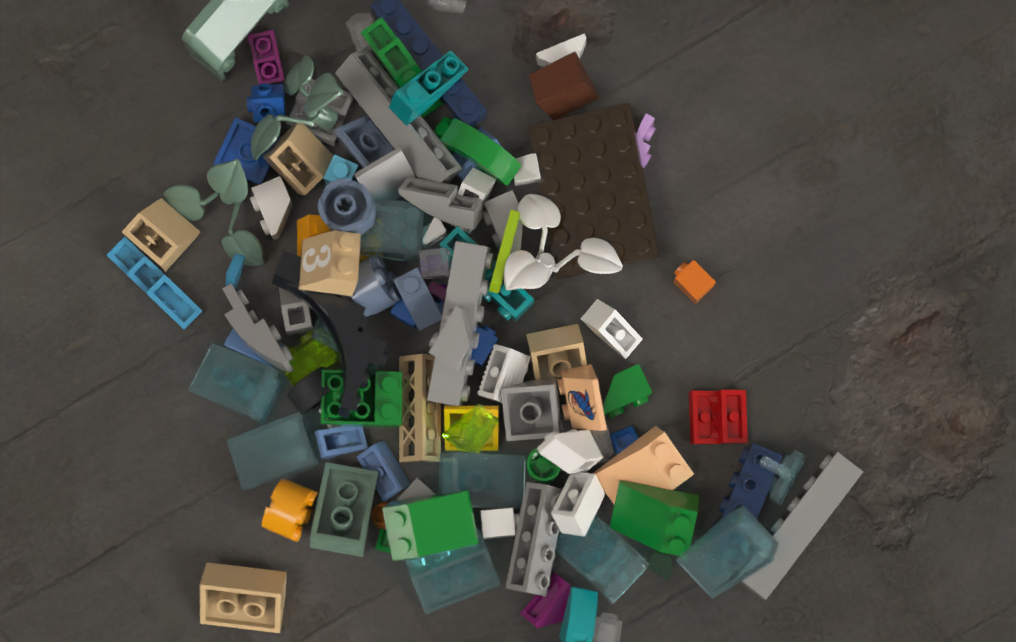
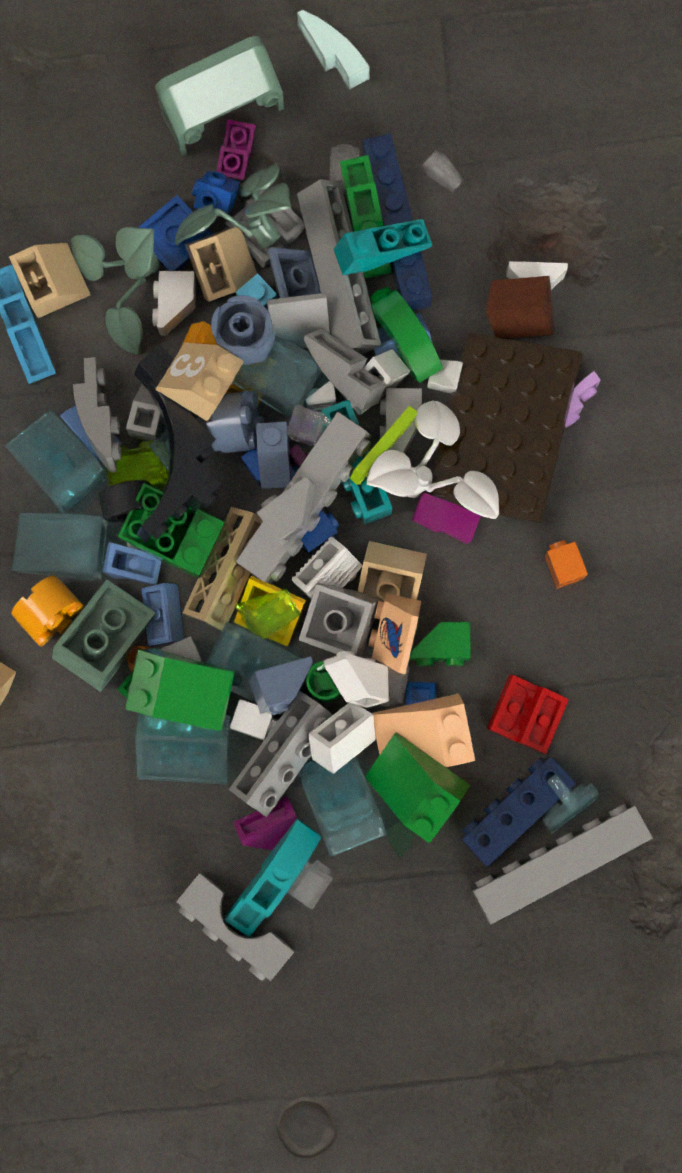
camera: 25 degrees right, 0 degrees up
(234, 271) = (105, 347): dark azure tile -> none
(508, 485) = (279, 685): none -> sand blue slope
(579, 286) = (446, 517): none -> magenta slope
(611, 328) = (459, 574): white slope -> none
(729, 552) = (474, 858): clear light blue slope -> none

